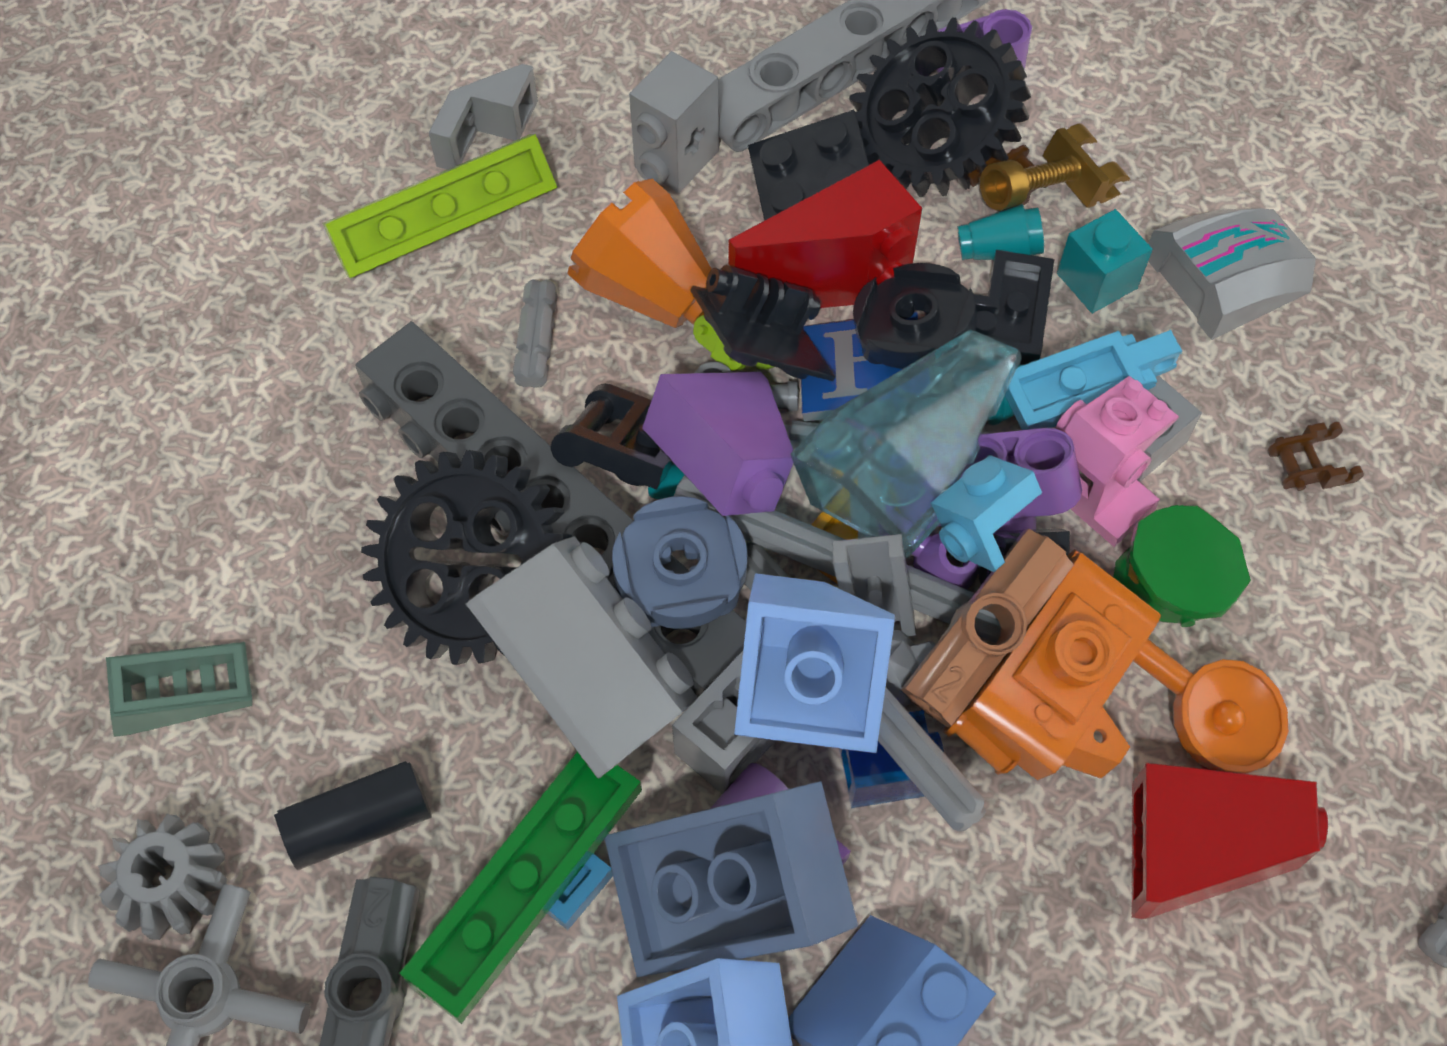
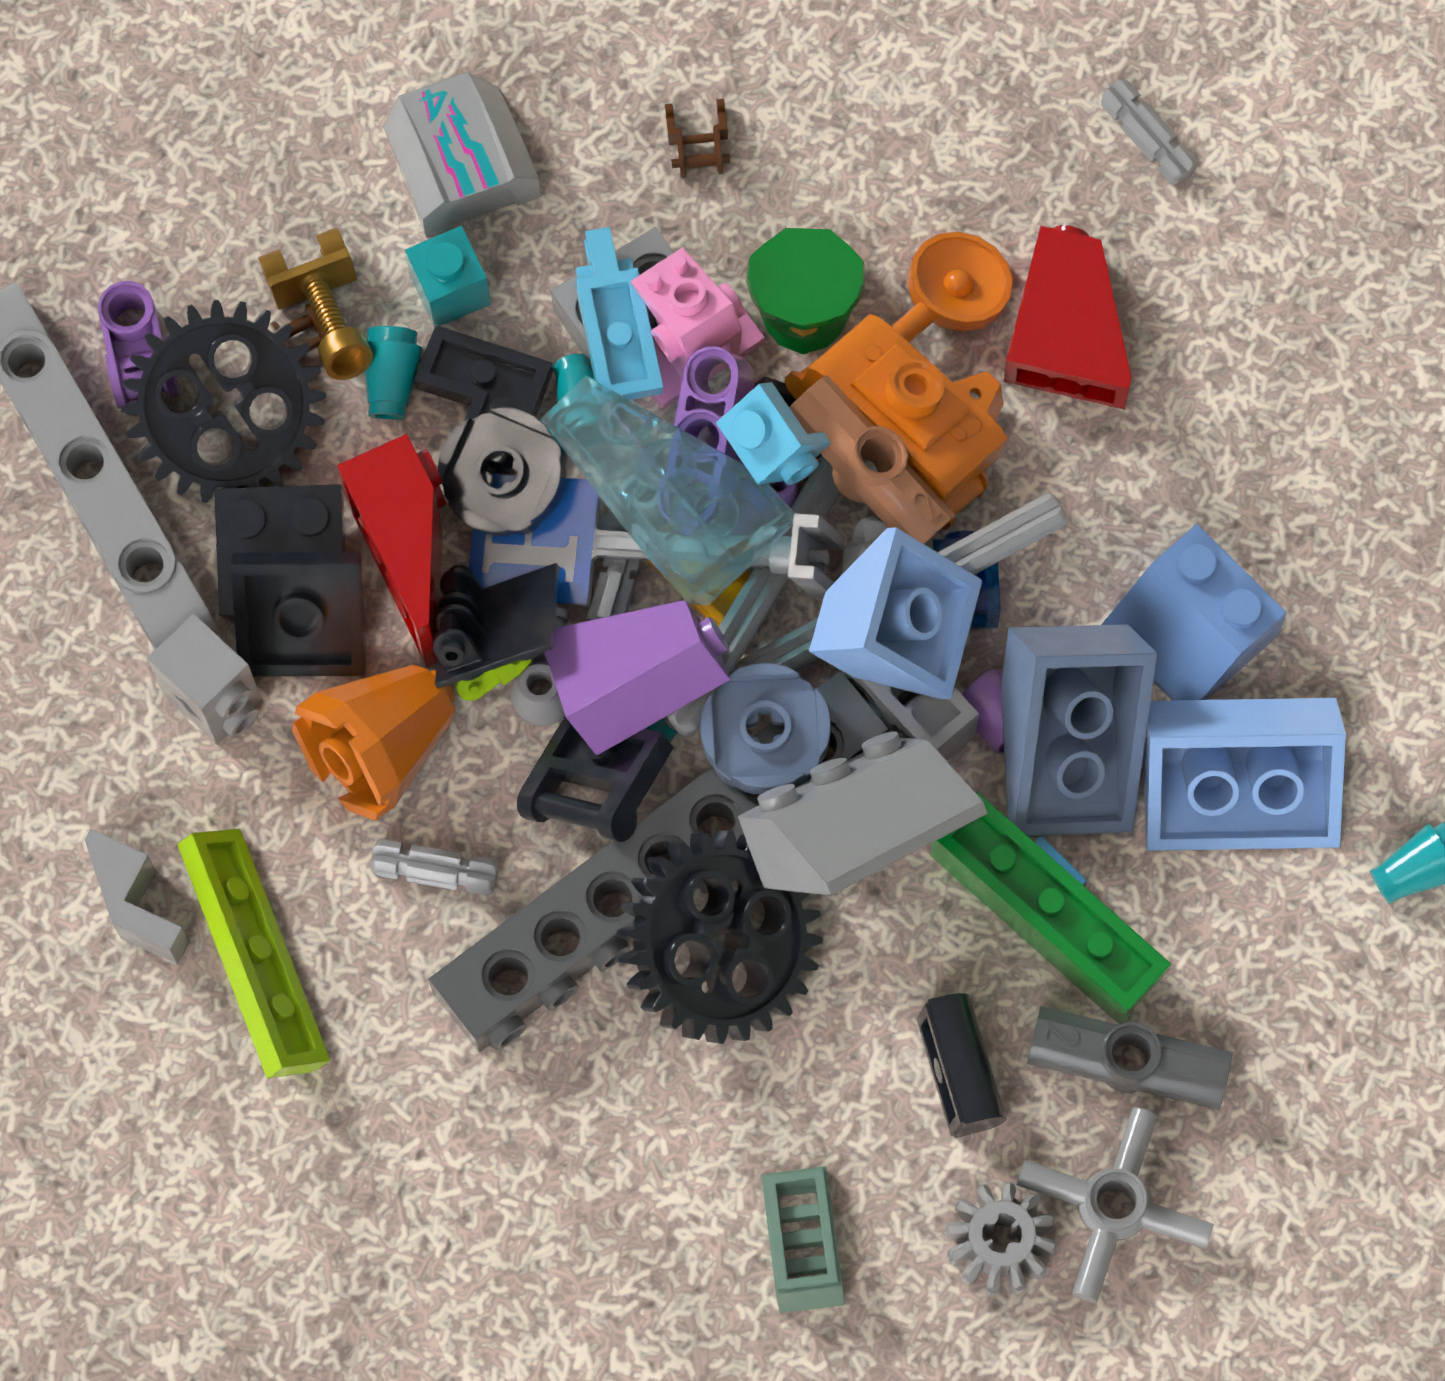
camera: 80 degrees left, 10 degrees up
(749, 180) = (299, 613): none -> black plate

